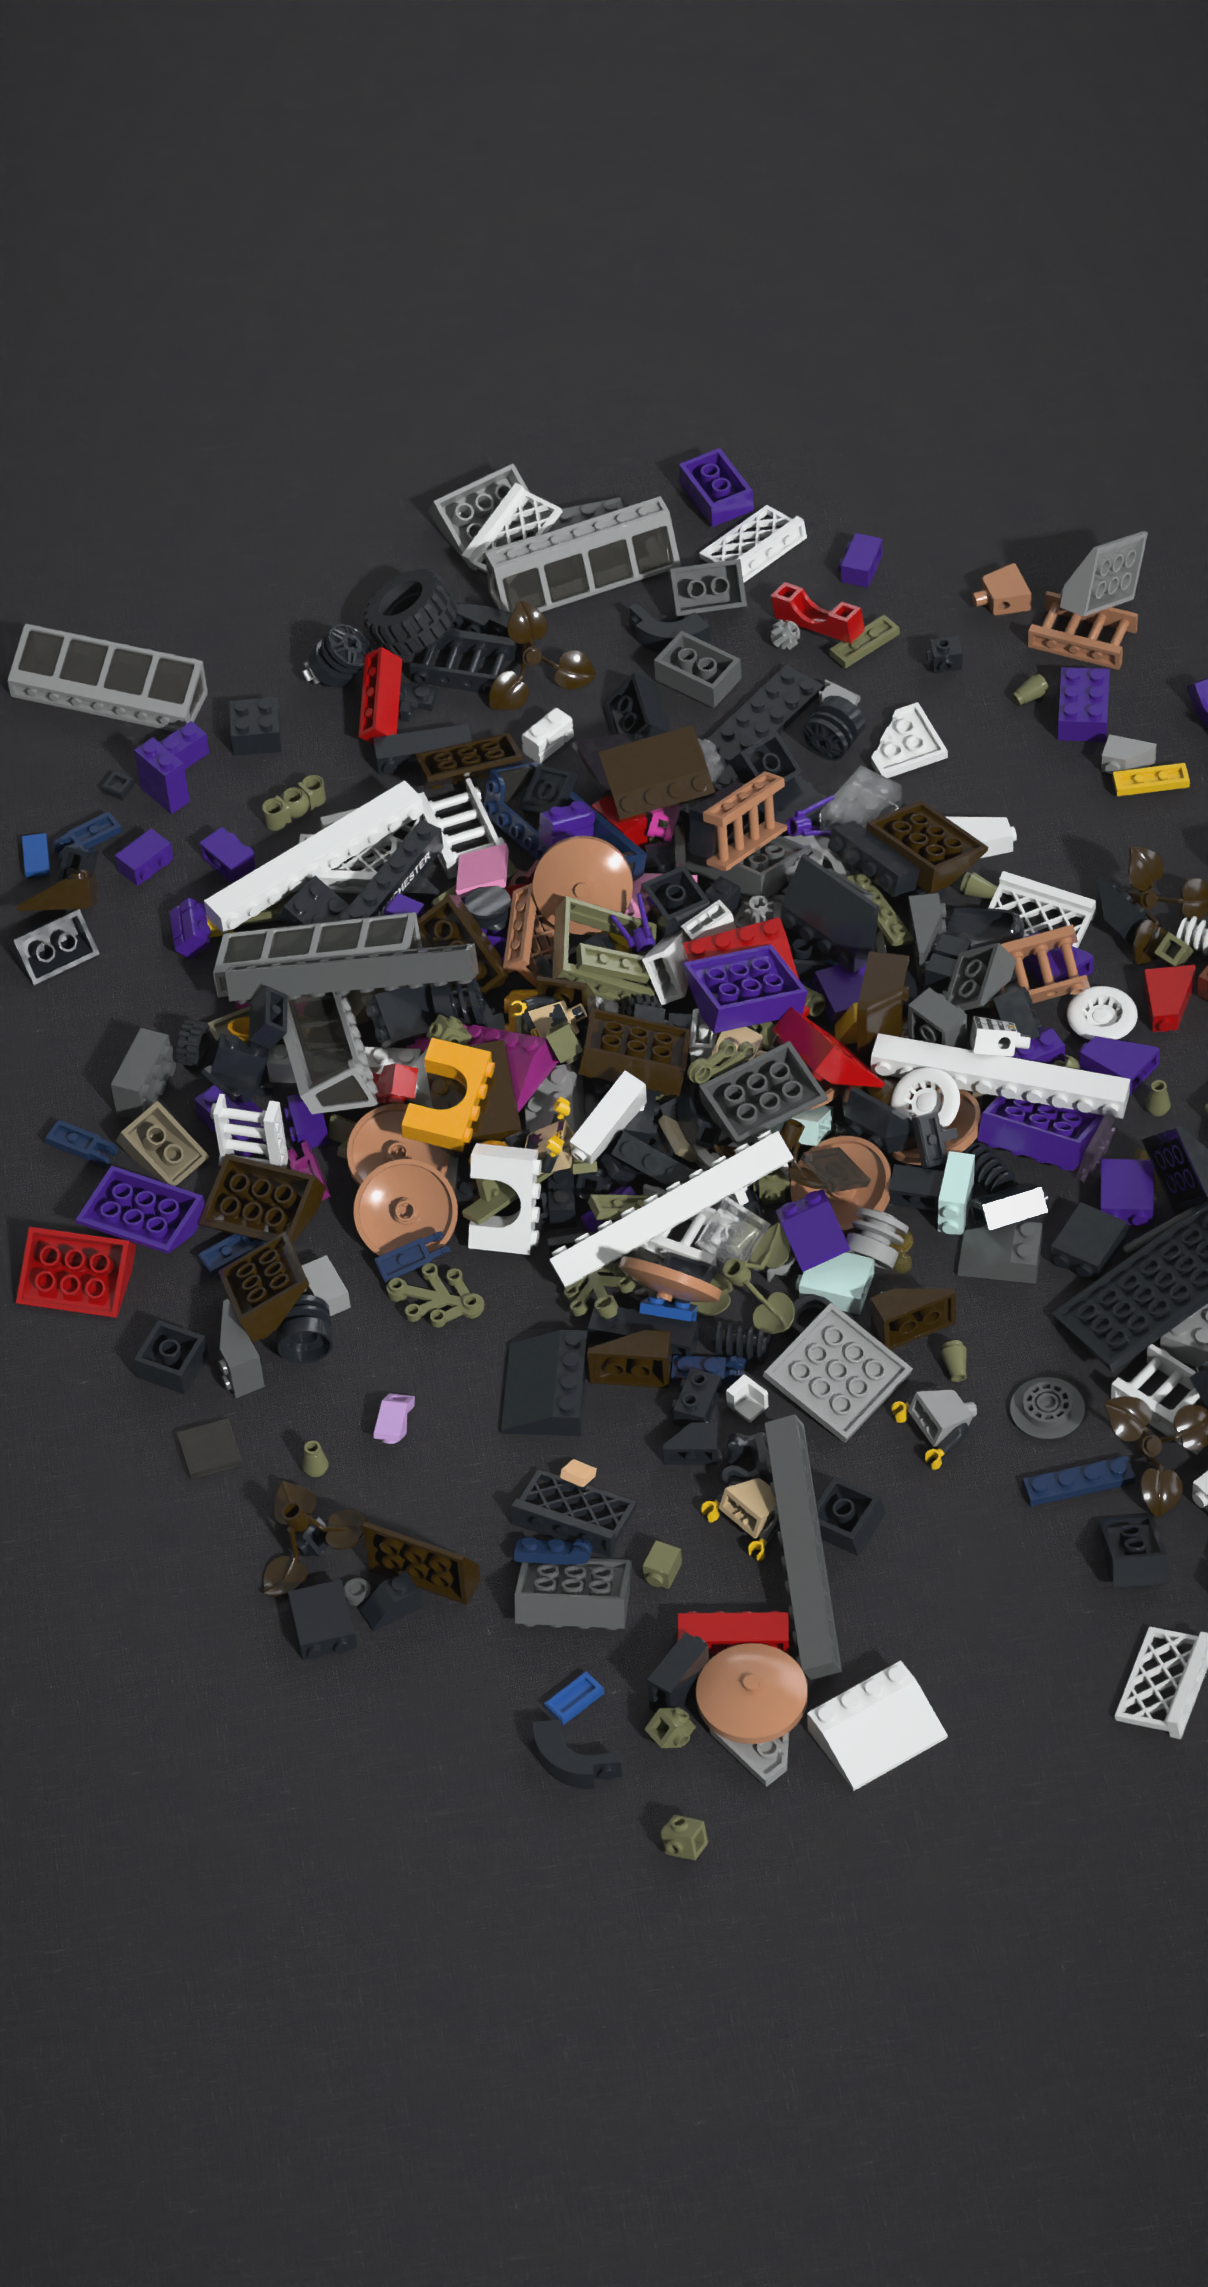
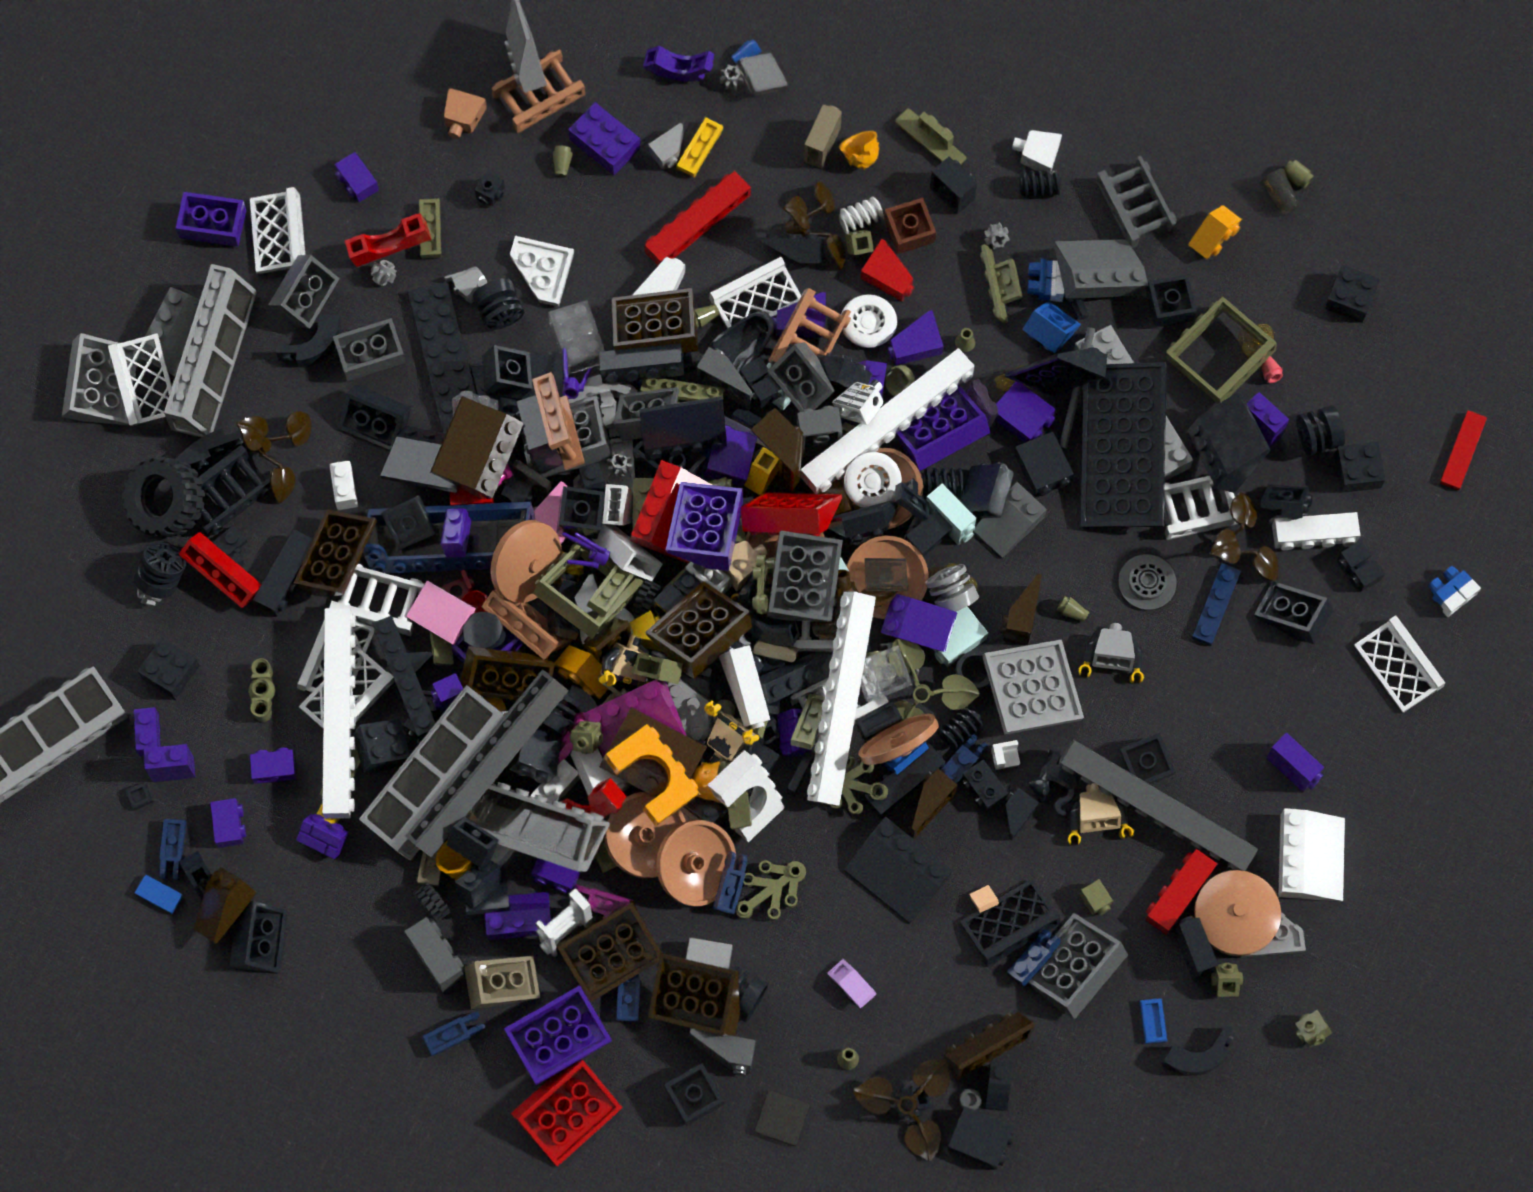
camera: 60 degrees left, 20 degrees up
(961, 1642) = (1295, 763): none -> dark purple brick
(1075, 822) = (698, 219): none -> red brick

